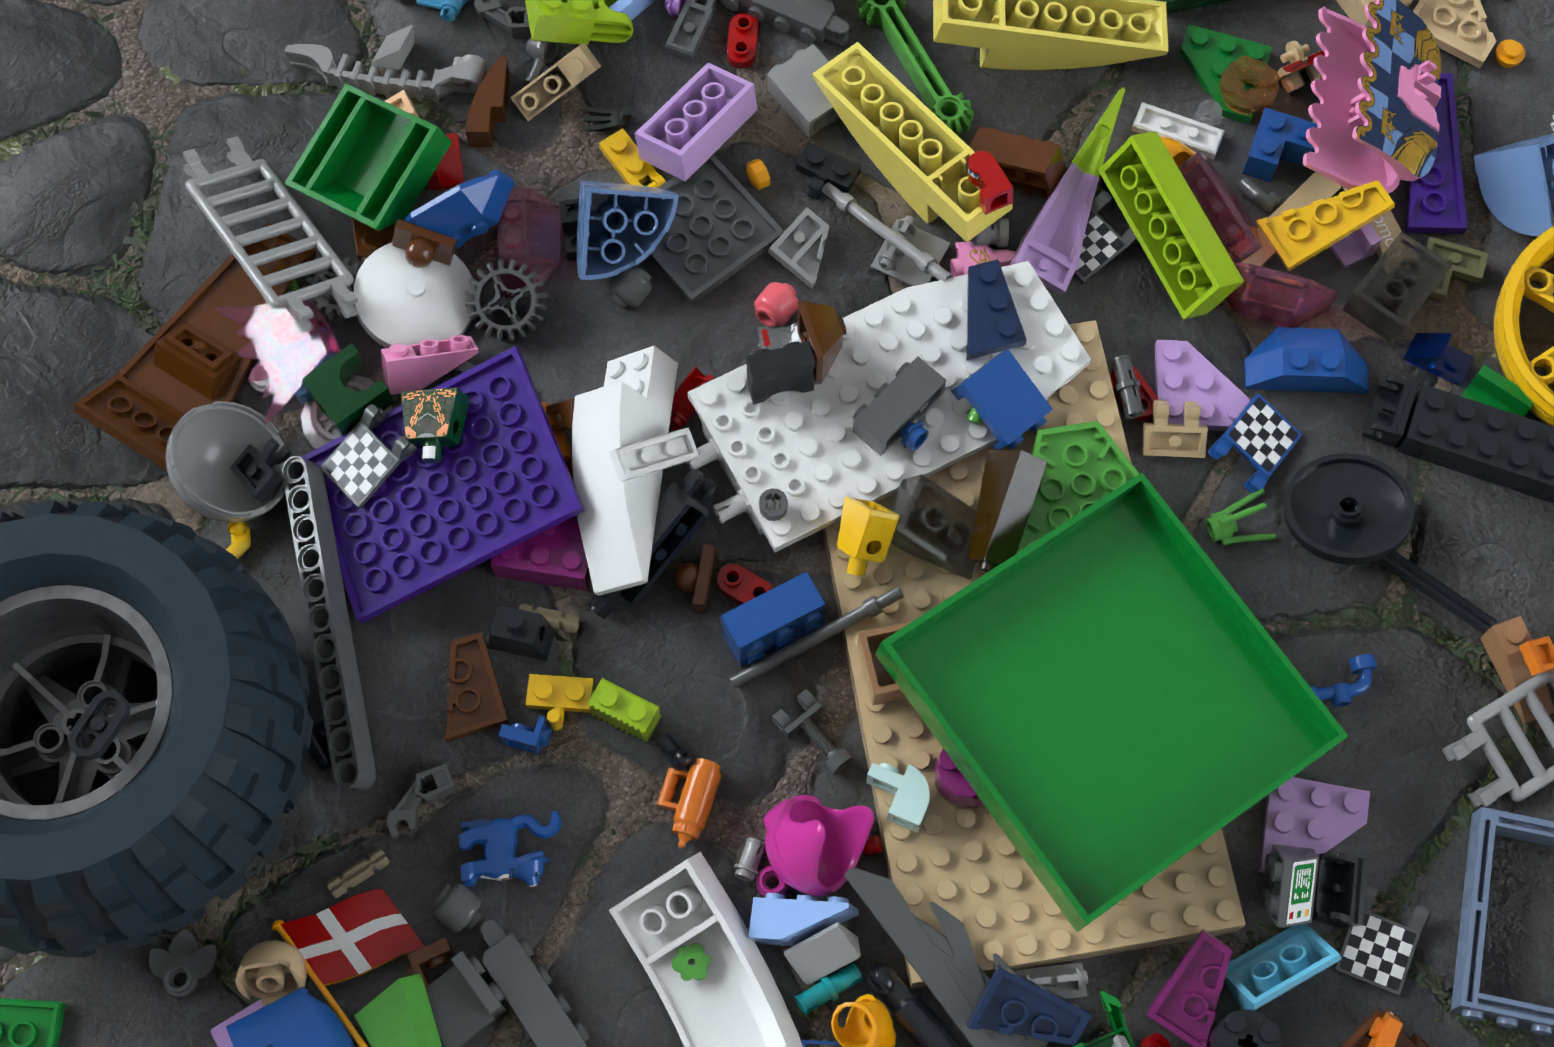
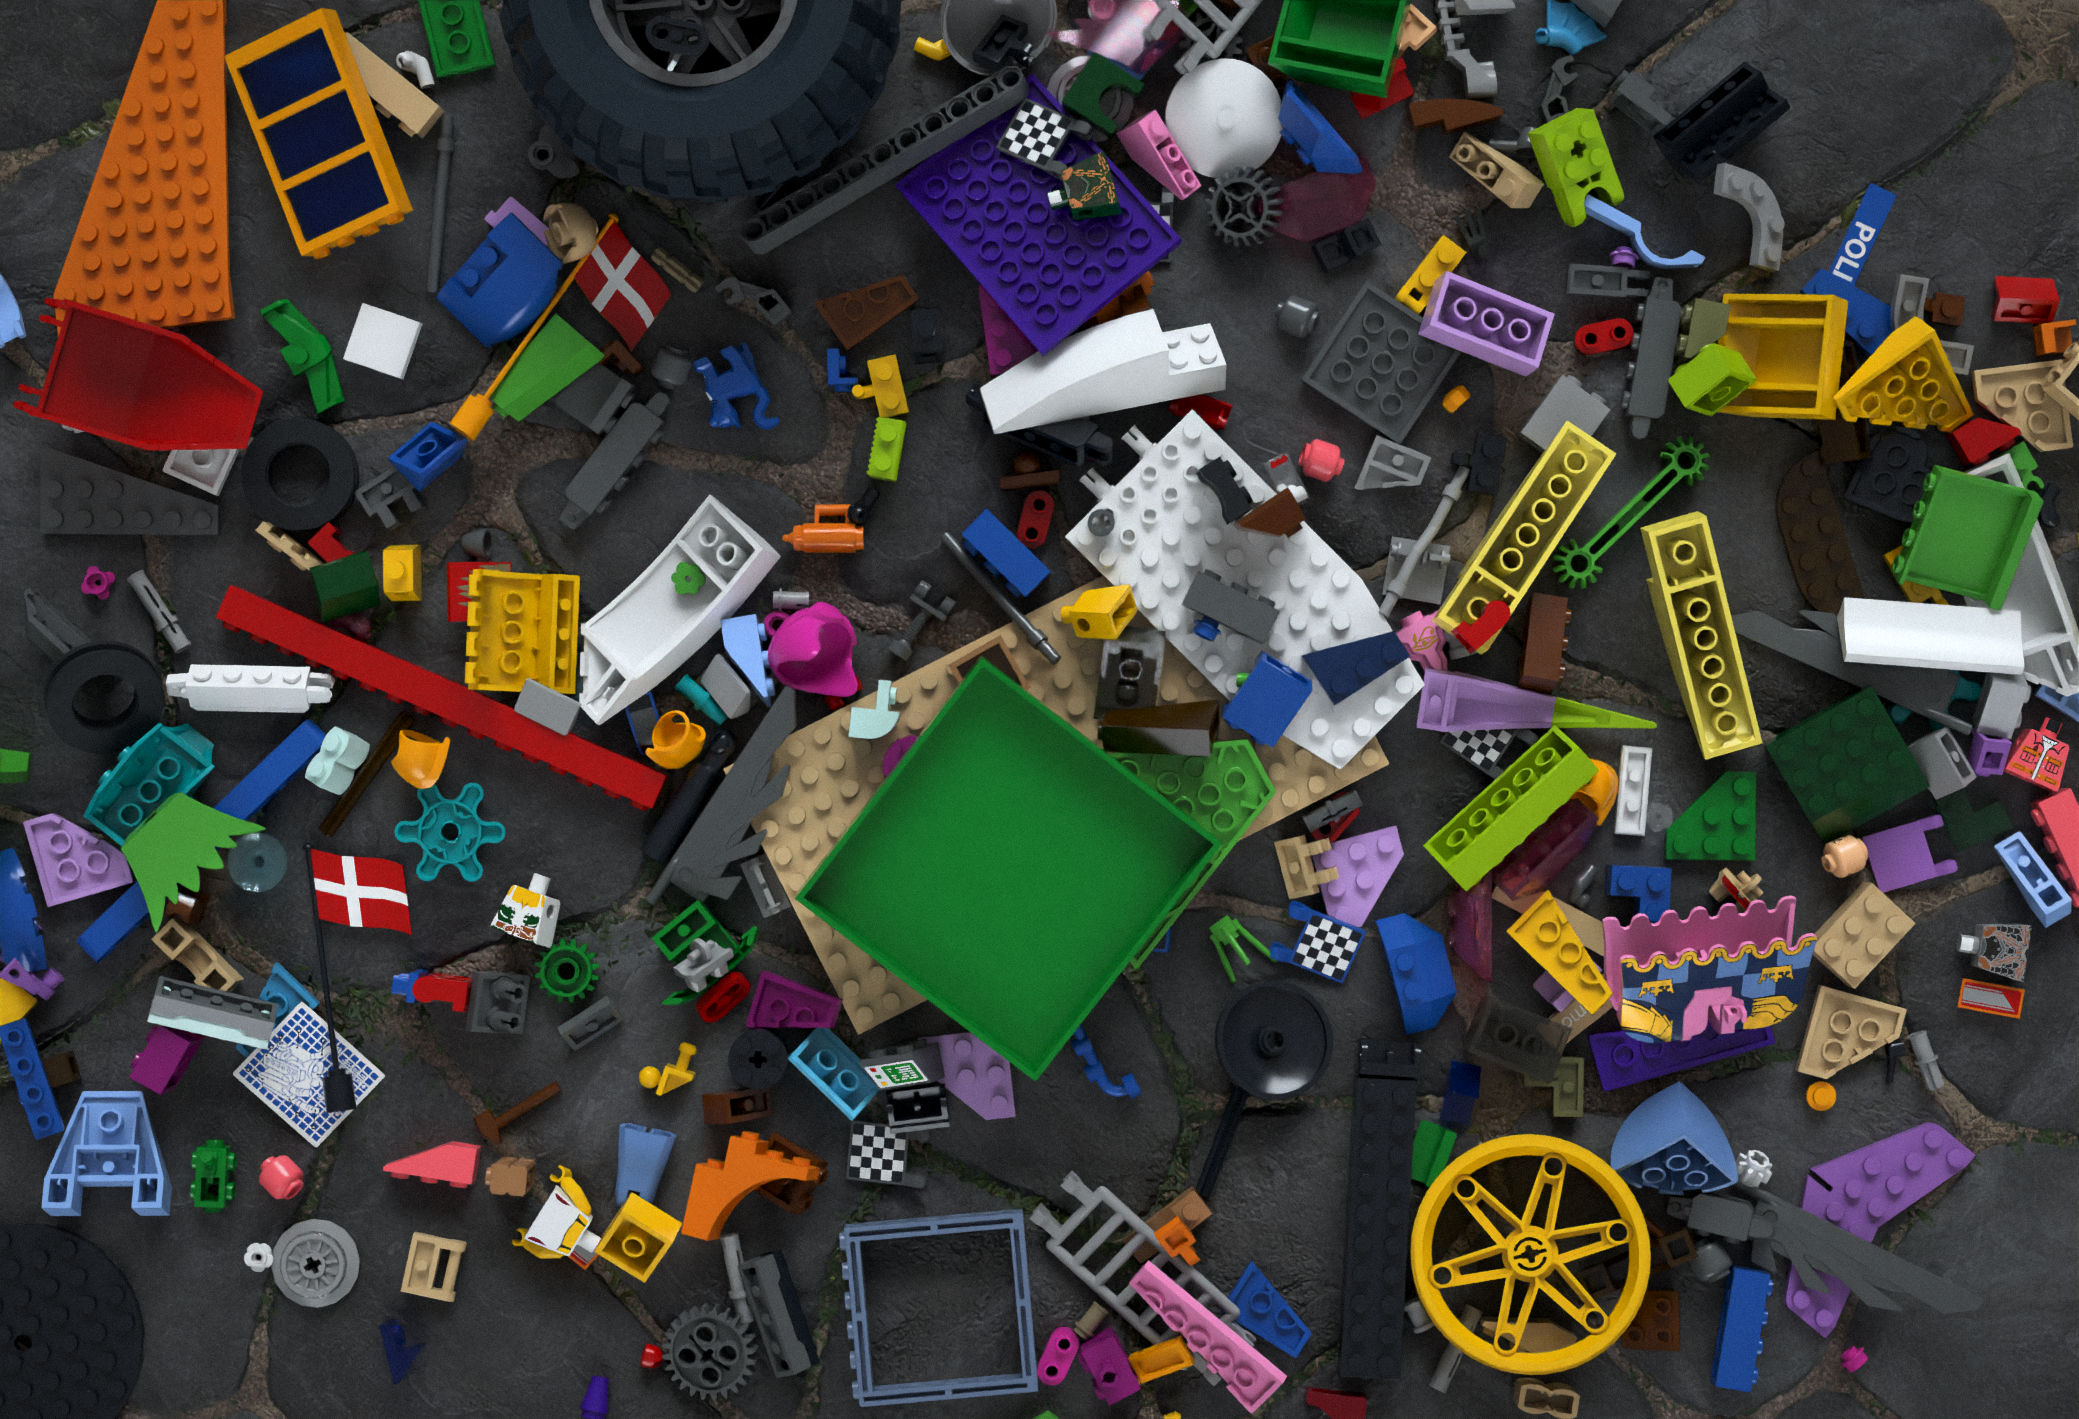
camera: 70 degrees right, 20 degrees up
(423, 245) = (1268, 110): reddish brown tile -> none
(557, 620) = (952, 353): dark tan axle -> none
(619, 226) = (1348, 289): medium blue brick -> none
(654, 454) = (1111, 402): white tile -> none
(1025, 1008) = (729, 870): dark blue wing -> none
(1252, 71) = (1711, 839): clear orange plate -> none

